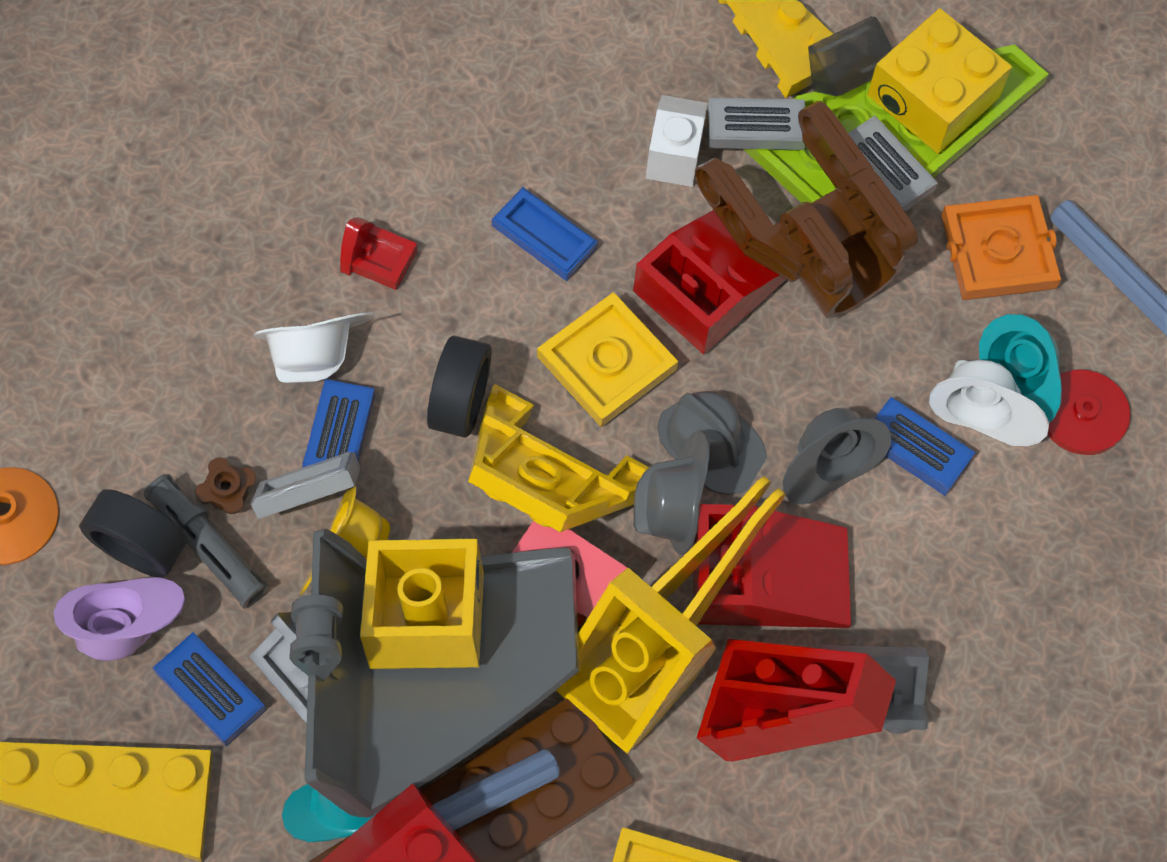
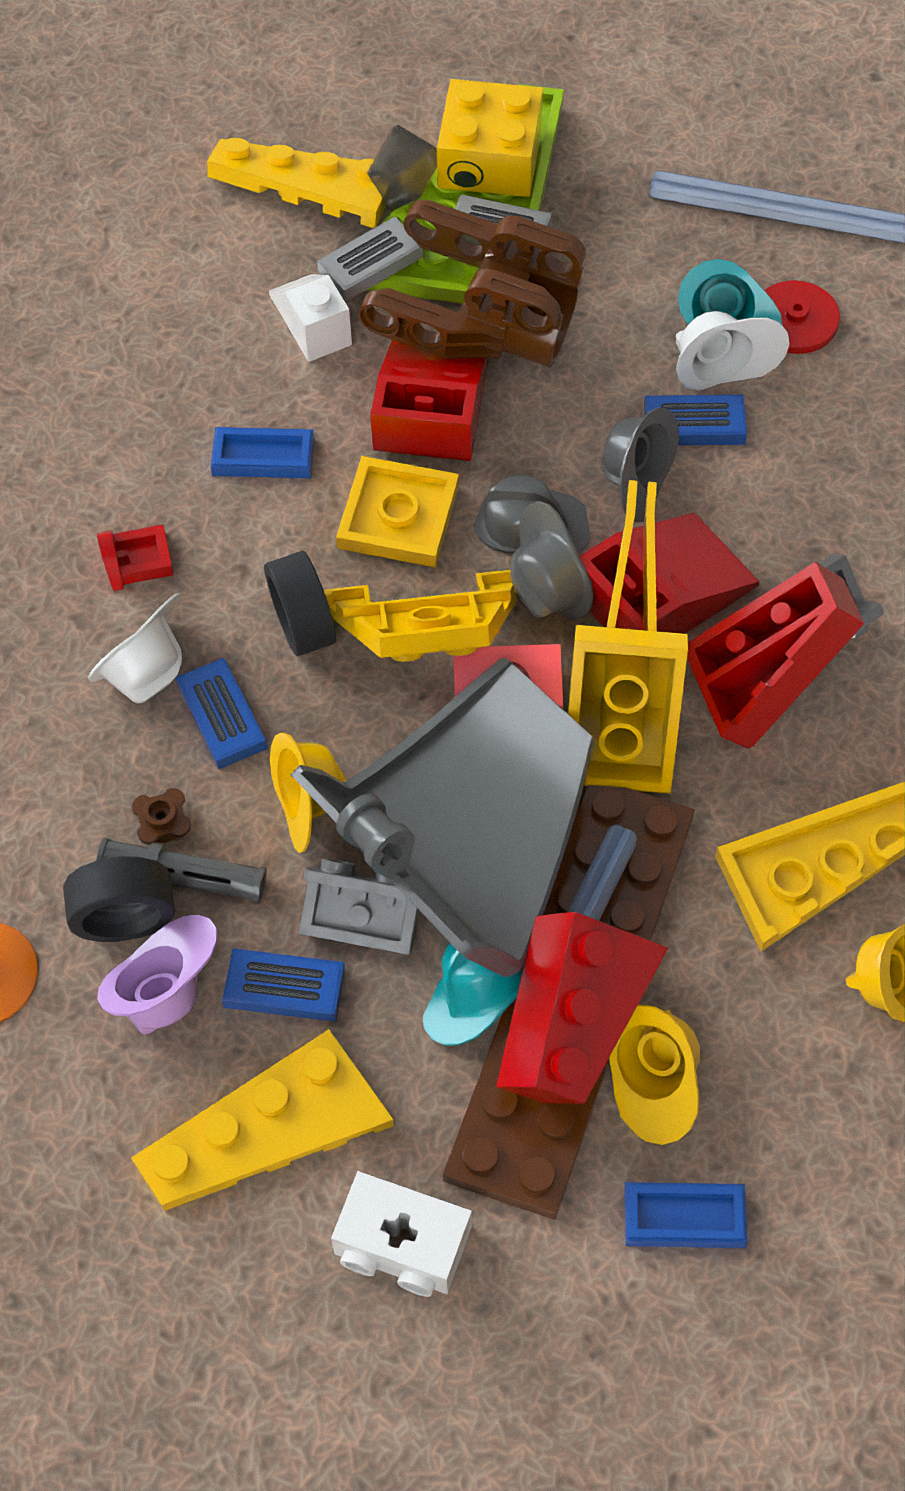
camera: 30 degrees left, 5 degrees down
(306, 484) = (234, 764): light grey tile -> none
(422, 604) = (428, 770): yellow brick -> none
(1000, 247) = (635, 236): orange plate -> none

